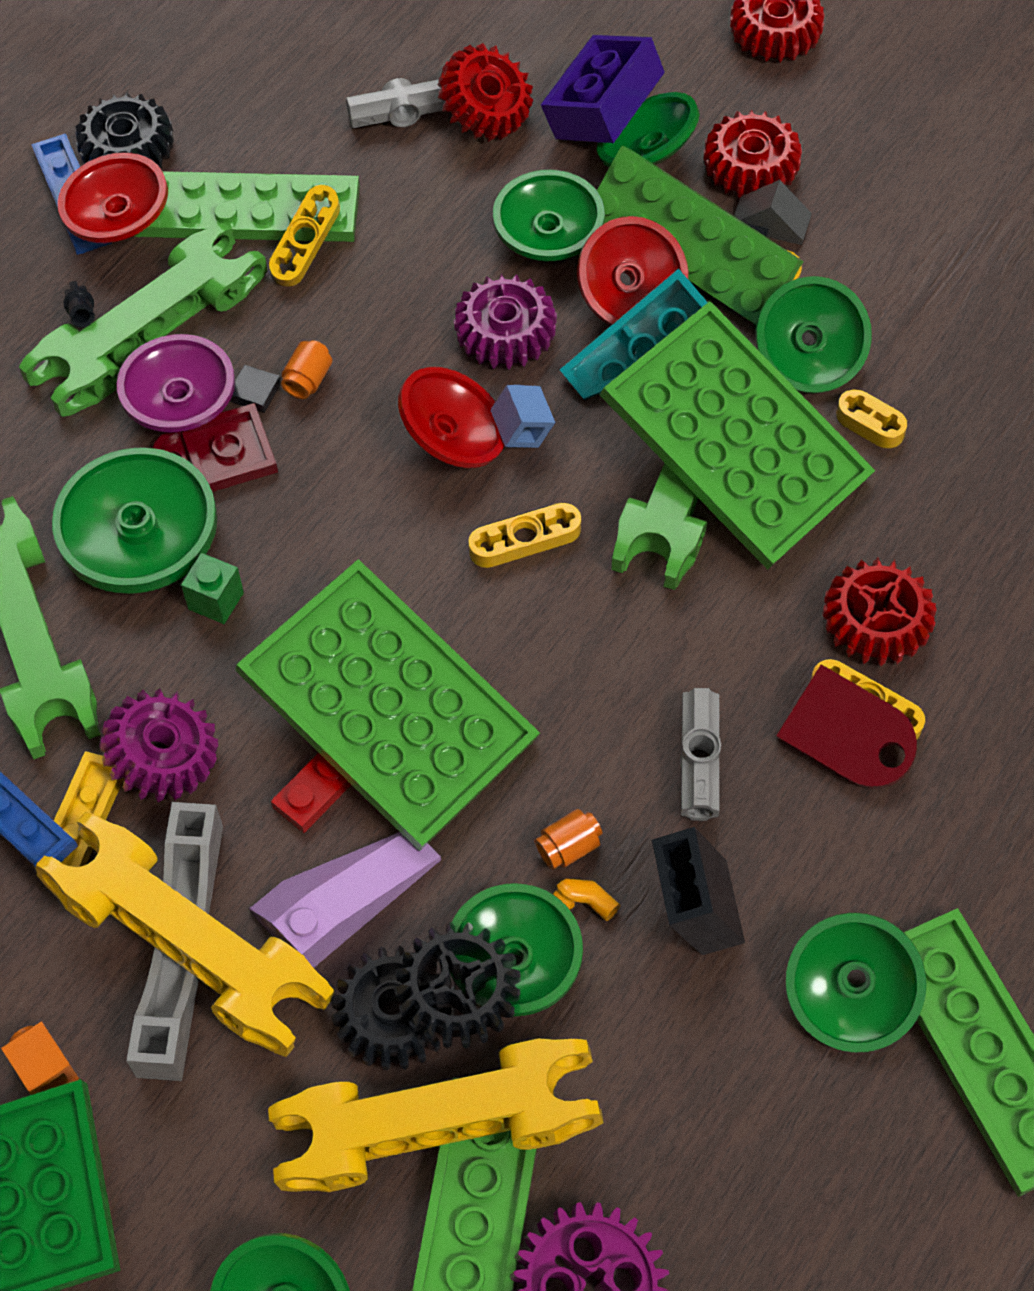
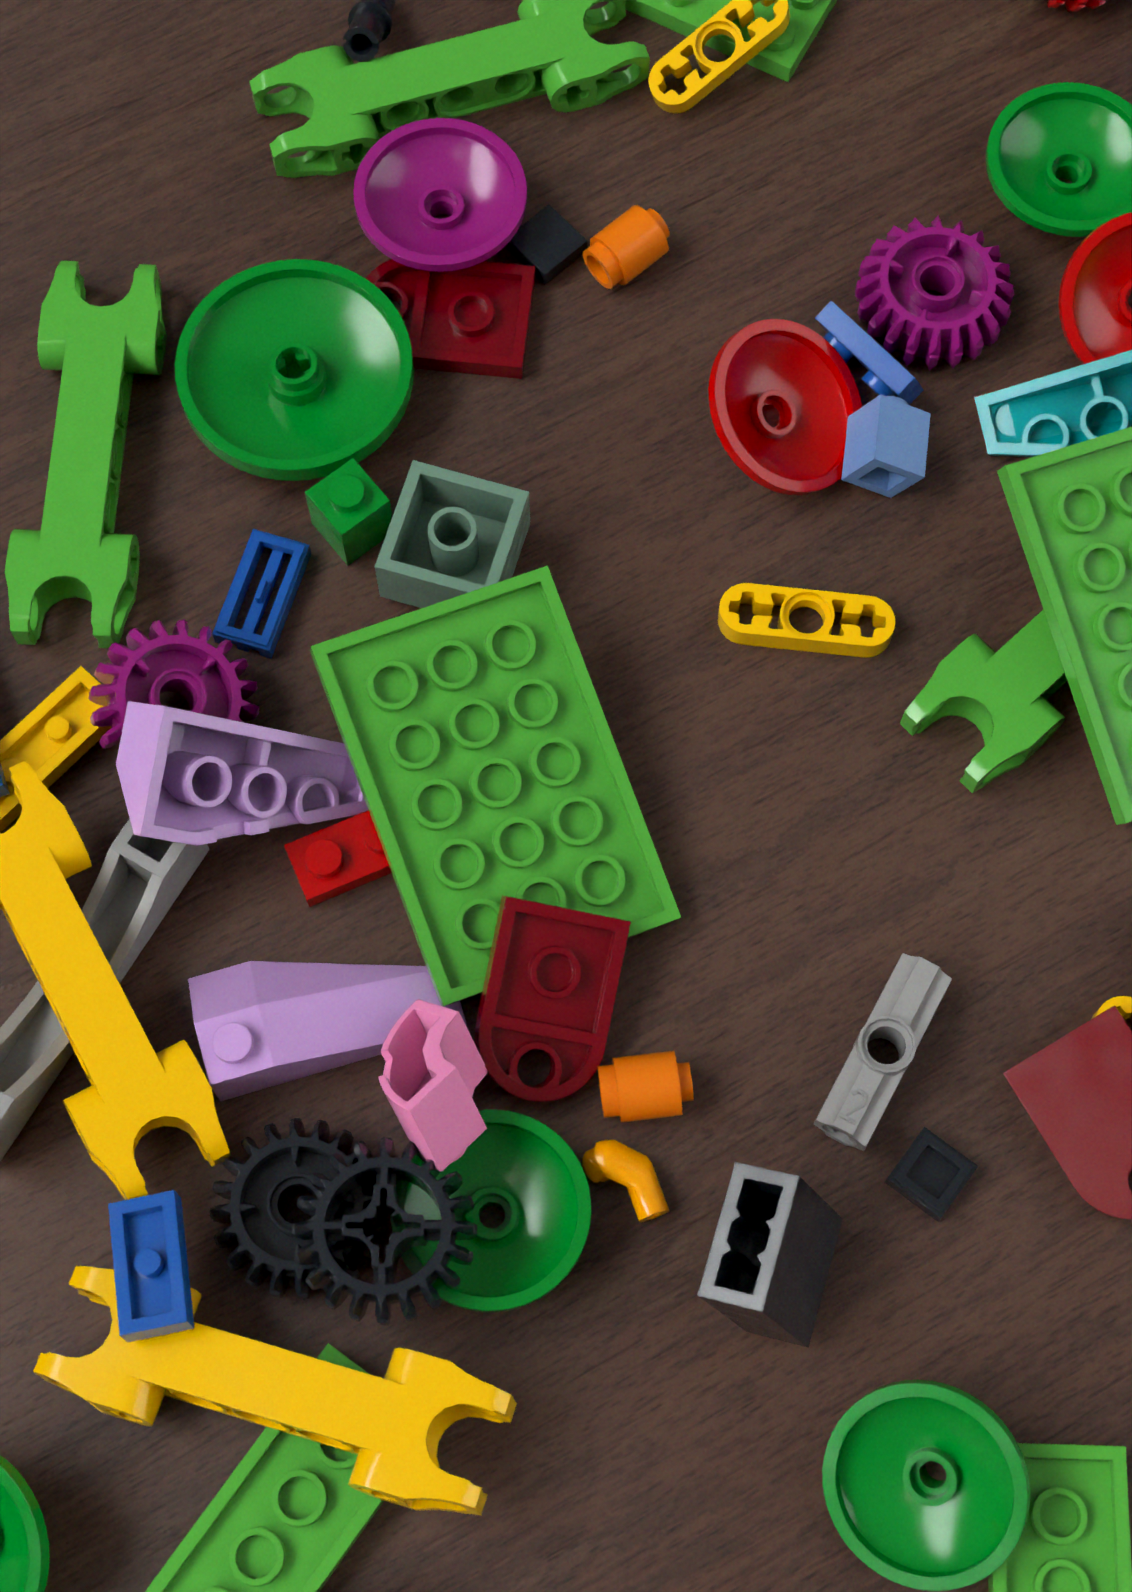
camera: 25 degrees right, 10 degrees up
(175, 629) = (247, 637): none -> blue tile
(219, 766) = (221, 778): none -> lavender wedge
(284, 573) = (450, 536): none -> sand green brick
(320, 1076) = (150, 1266): none -> blue plate
(442, 886) = (432, 1081): none -> bright pink brick
(481, 809) = (549, 990): none -> dark red tile
(484, 369) = (884, 373): none -> plate
(764, 813) = (931, 1174): none -> black tile

